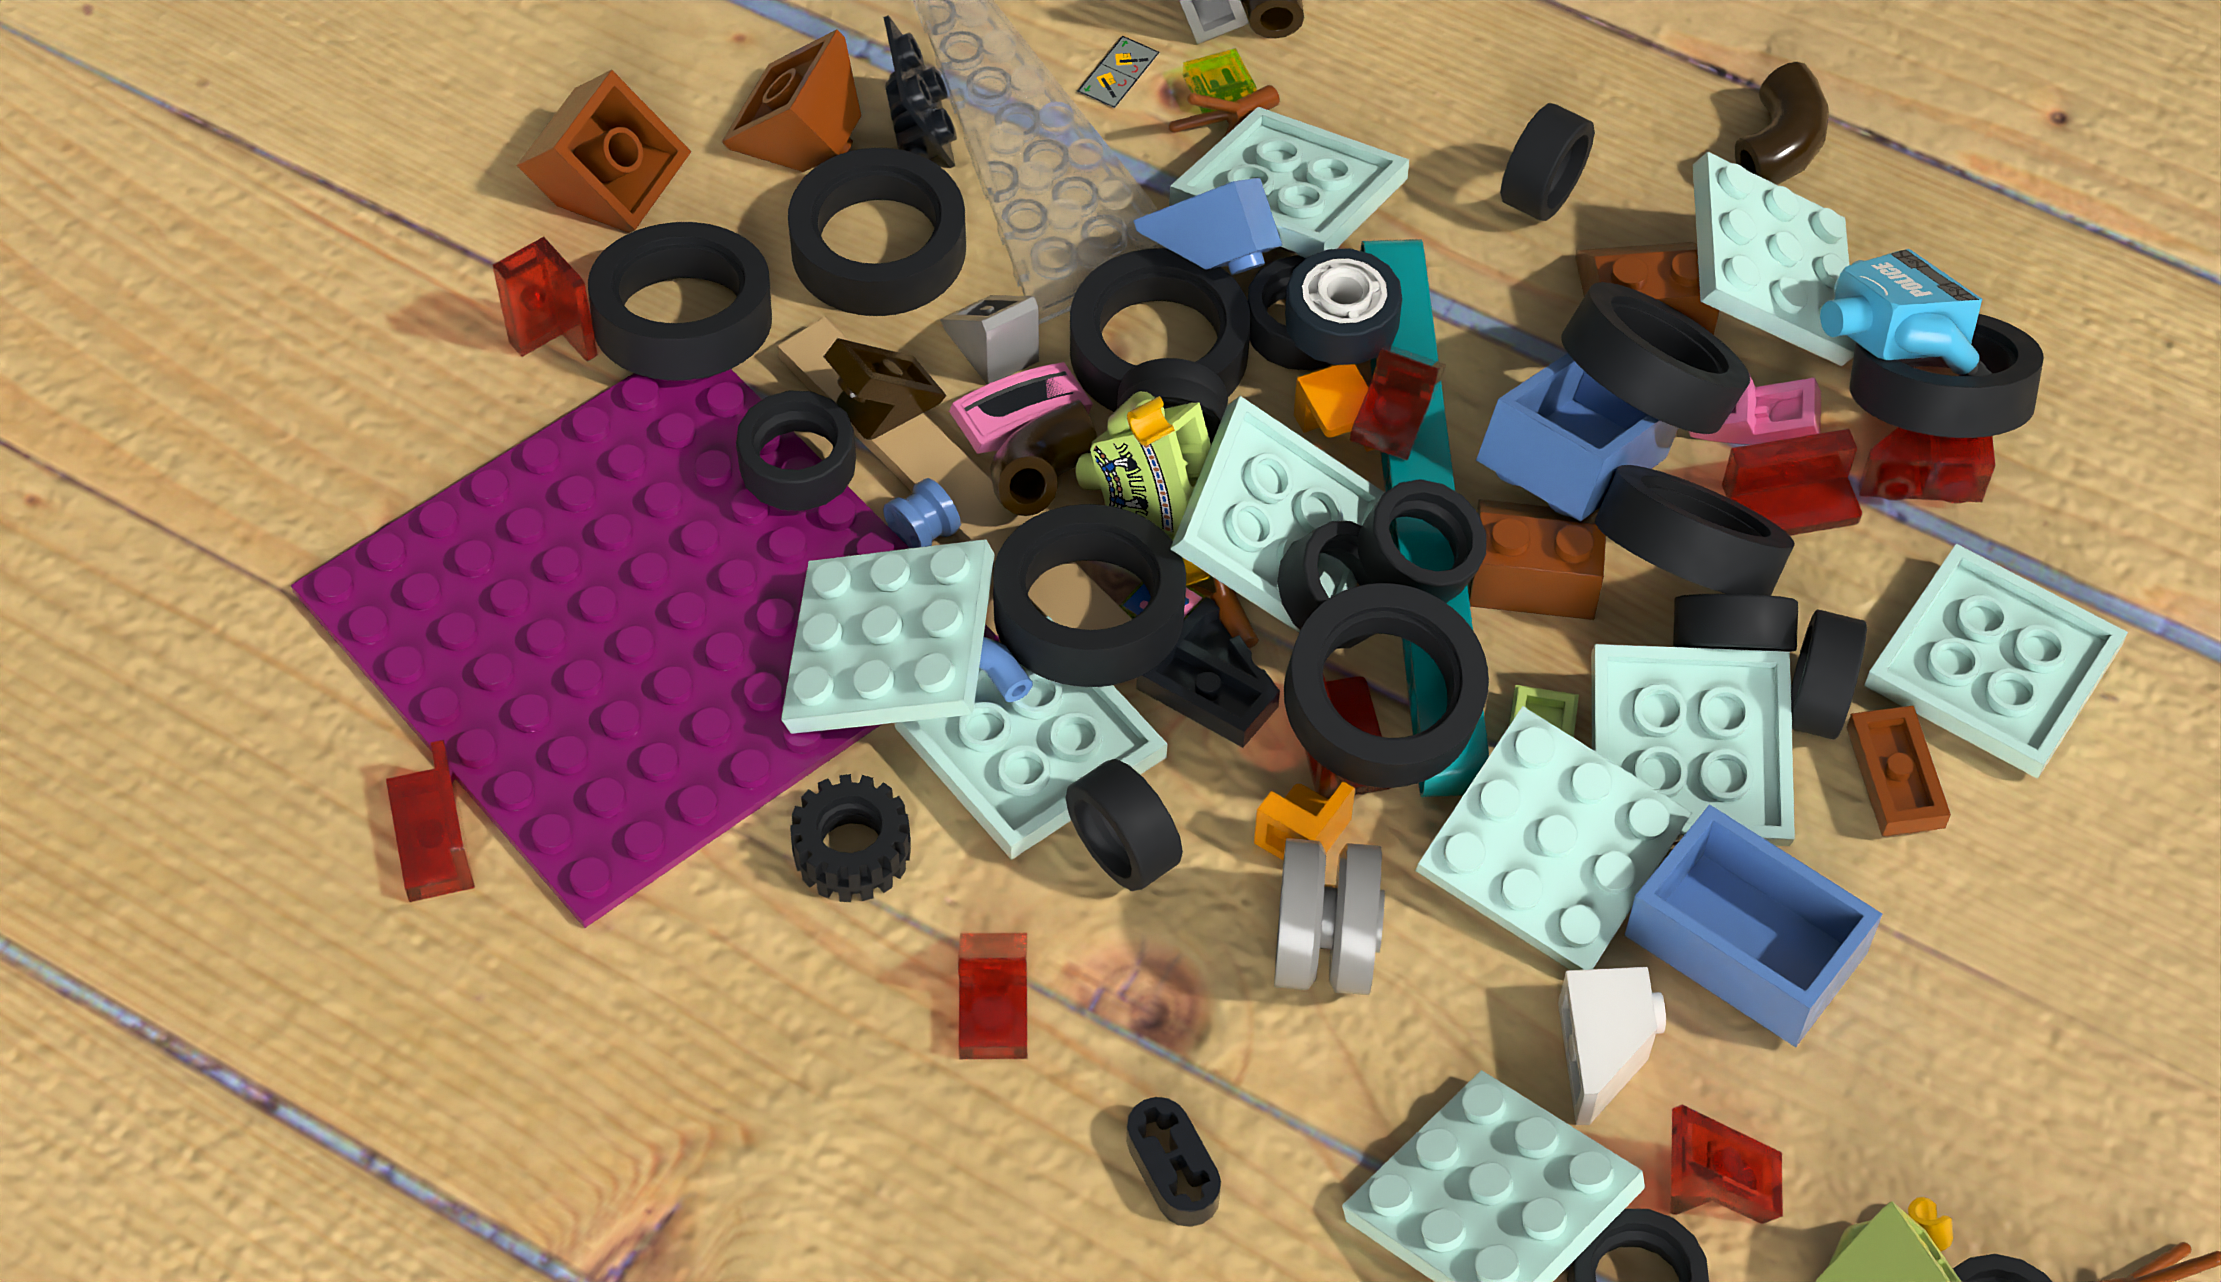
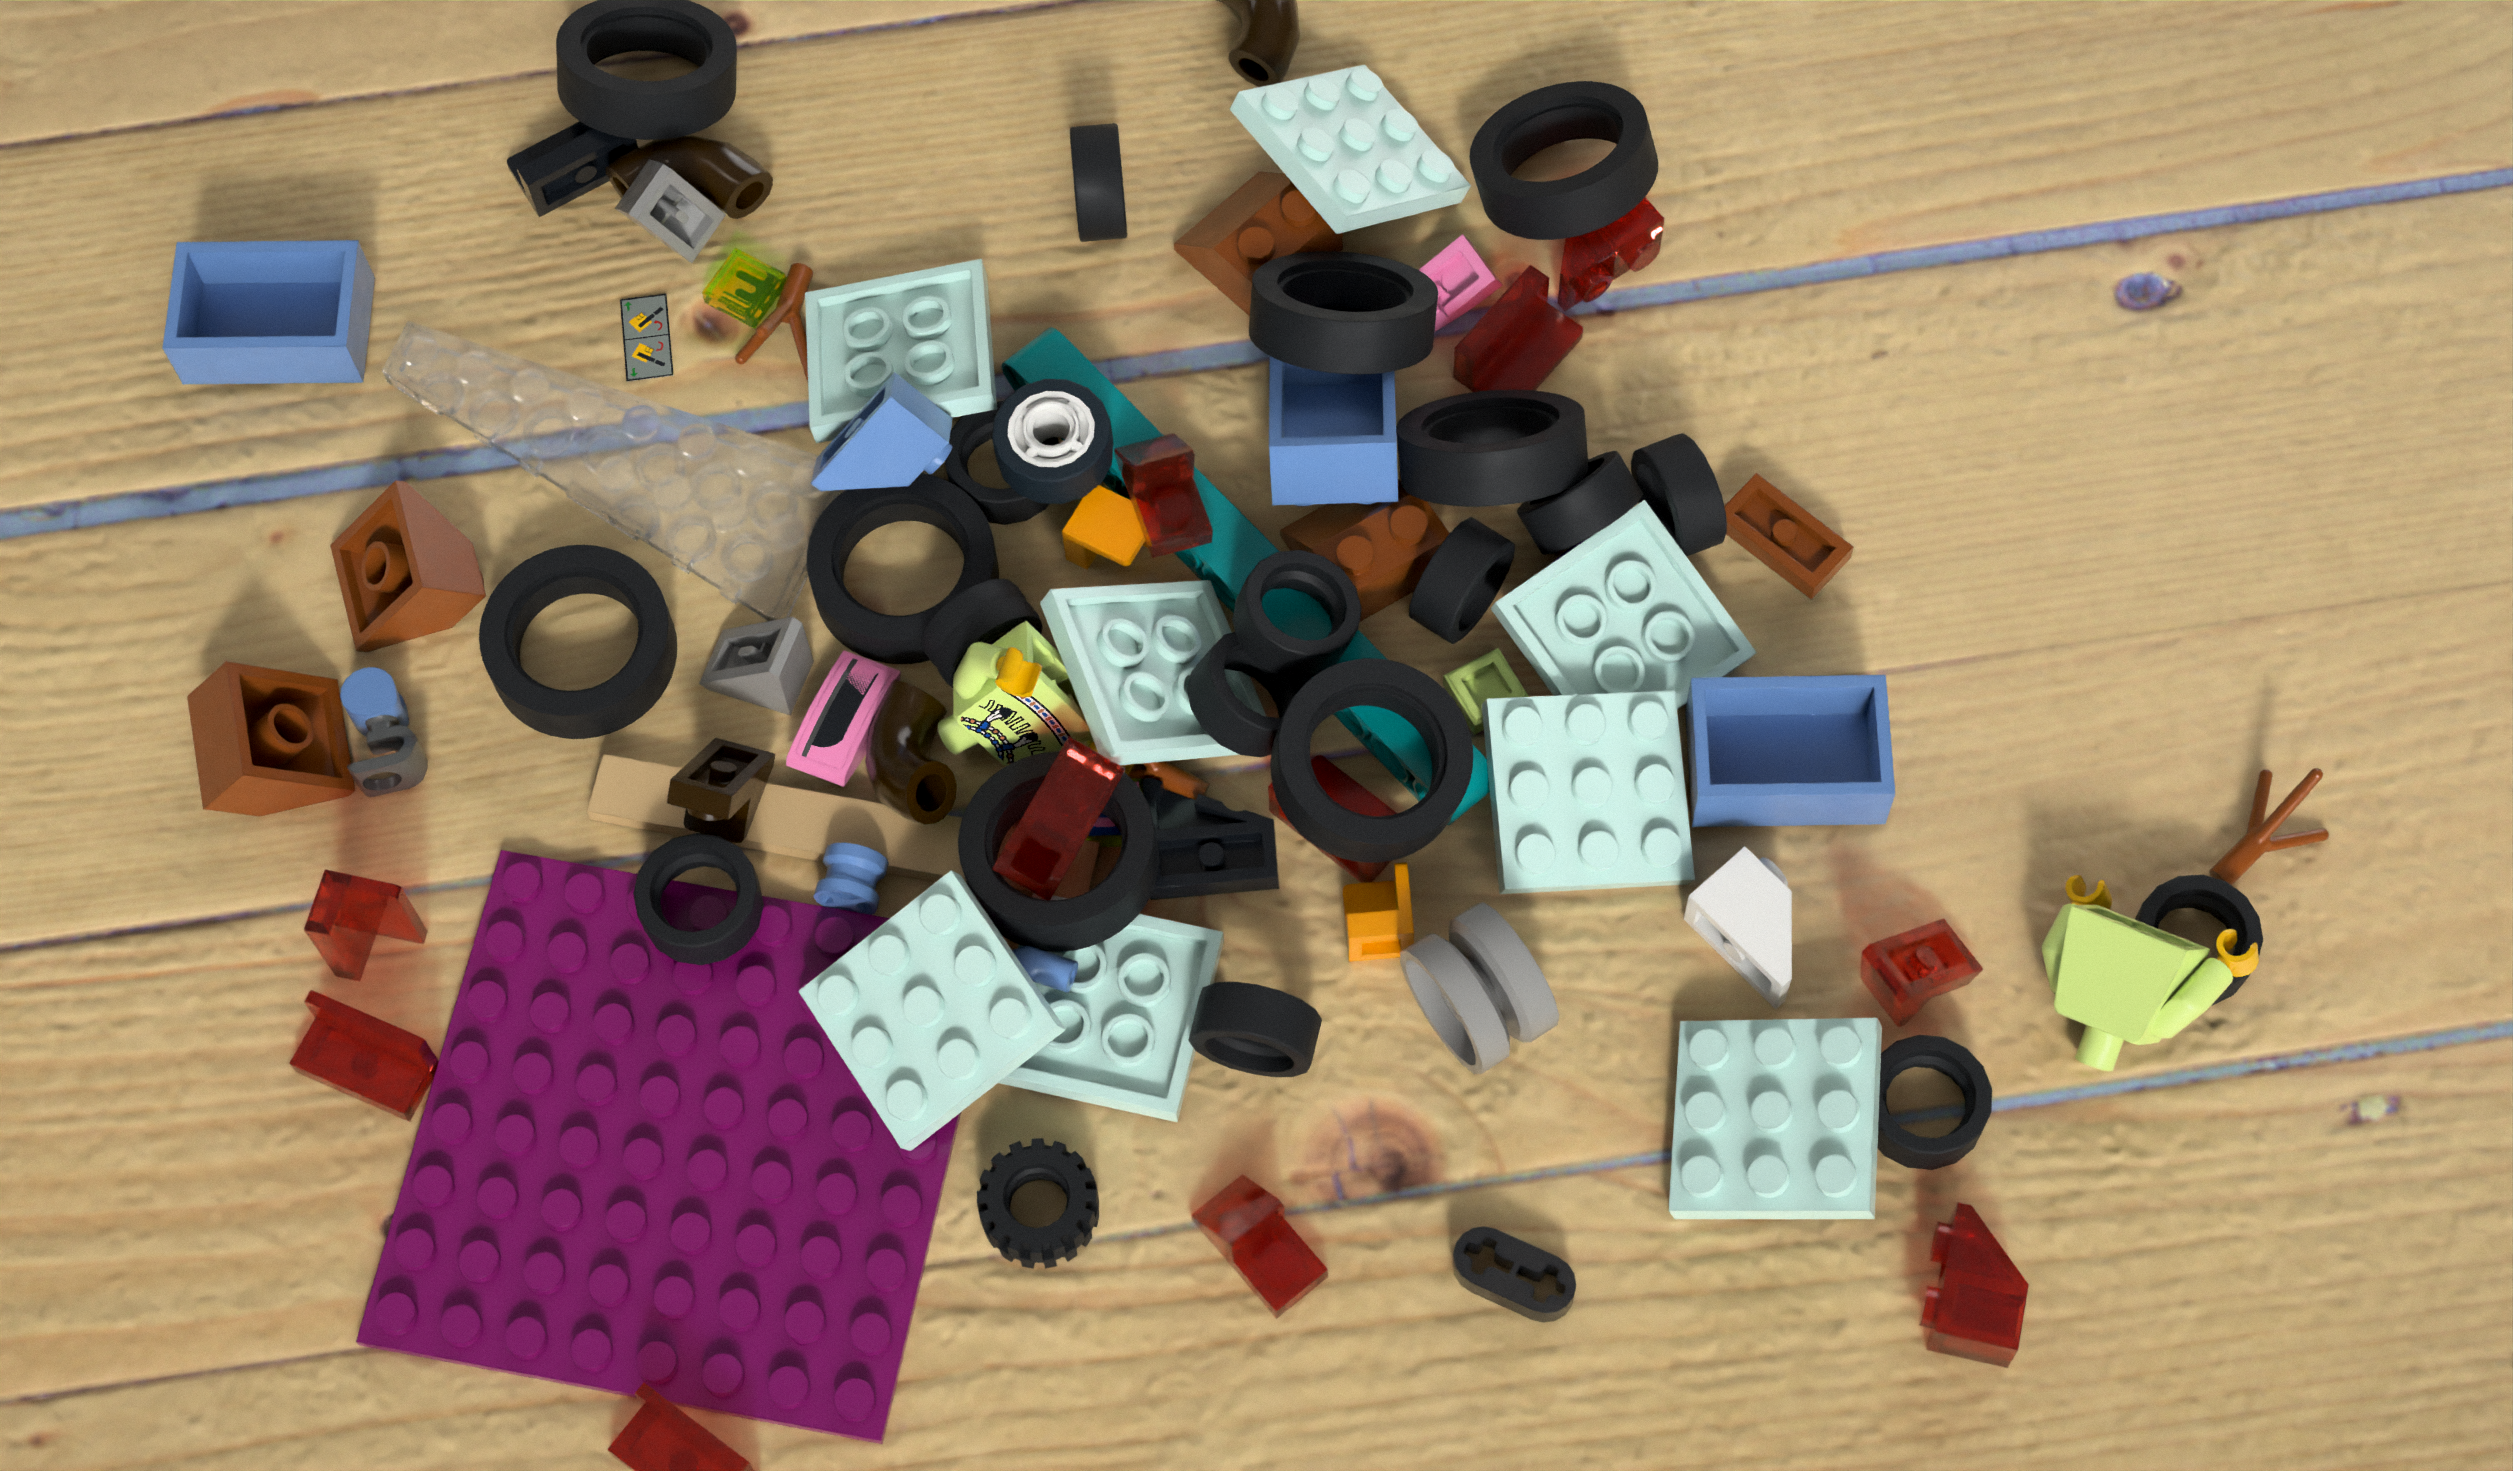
camera: 35 degrees left, 10 degrees up
(473, 402) = (365, 1057): none -> clear red panel
(686, 348) = (441, 773): black tyre -> none
(697, 188) = (383, 718): none -> leg
(915, 100) = (498, 492): black hinge -> none
(1101, 563) = (1059, 818): none -> clear red slope
(1584, 609) = (1461, 580): none -> black tyre
(1906, 311) = (1507, 133): medium azure torso -> none
(1996, 660) = (1782, 385): light aqua plate -> none

